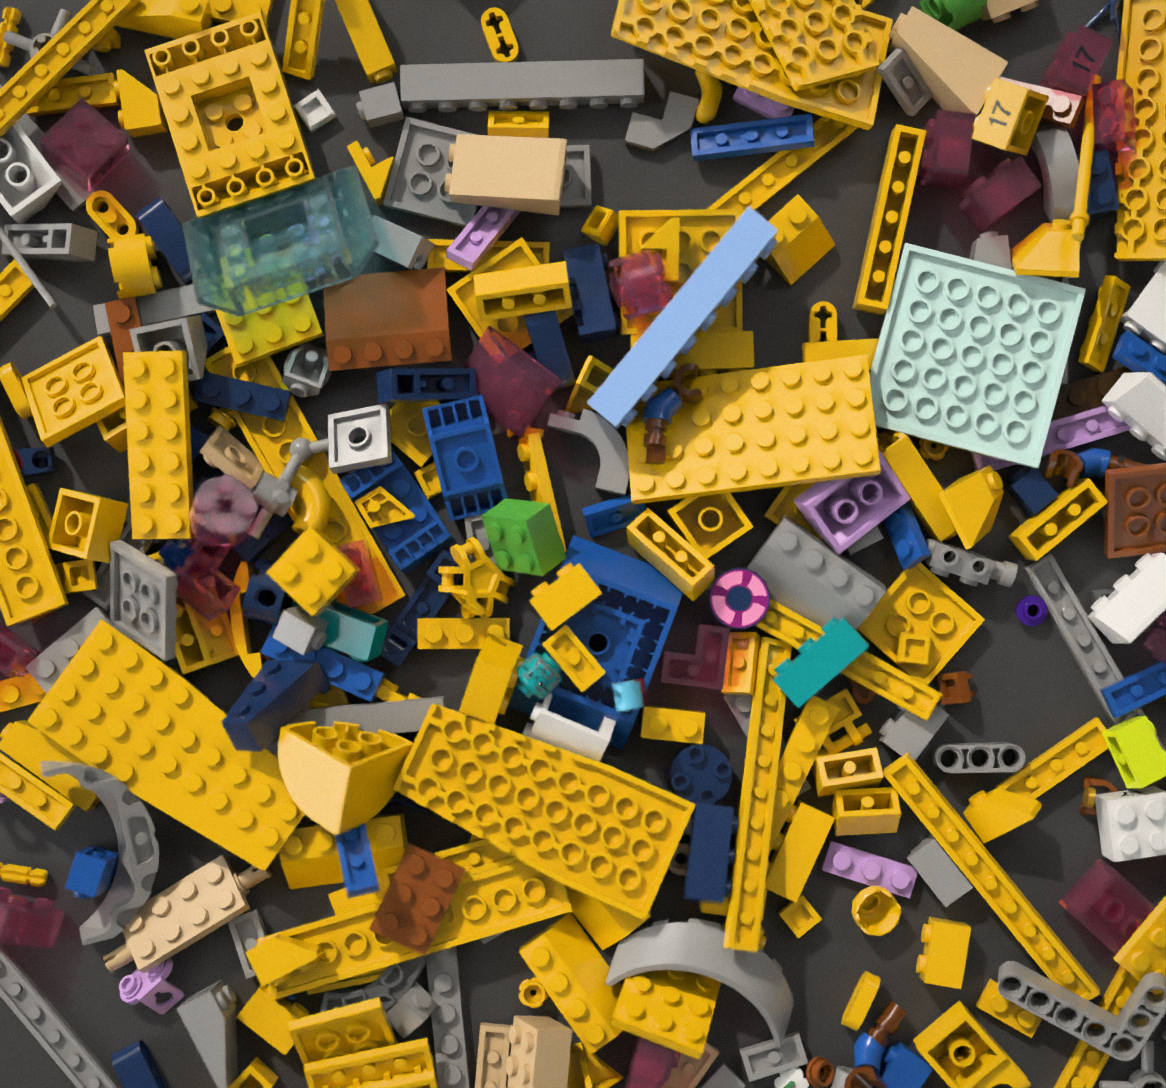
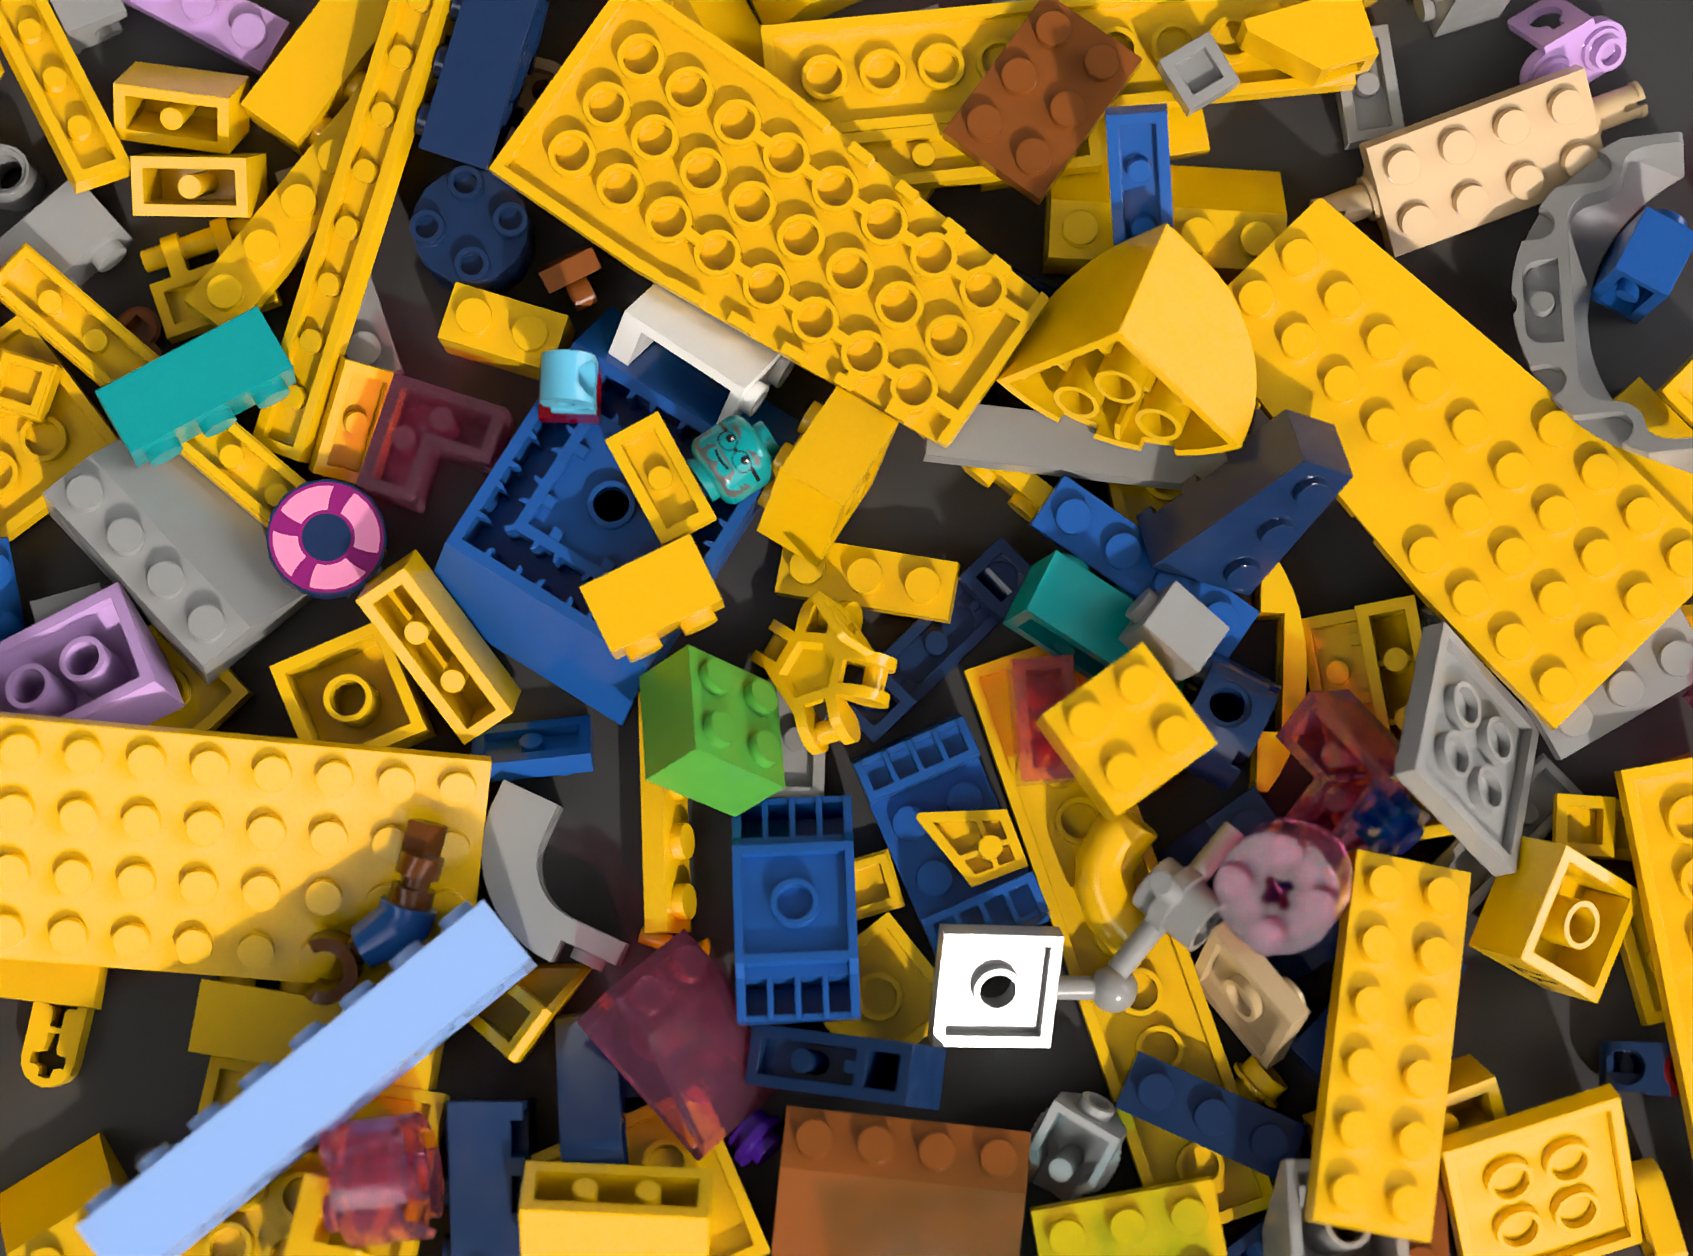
camera: 170 degrees left, 5 degrees down
(338, 926) = (1197, 74): none -> light grey plate
(465, 344) = (757, 1138): none -> dark purple plate
(646, 763) = (571, 273): none -> dark orange tile

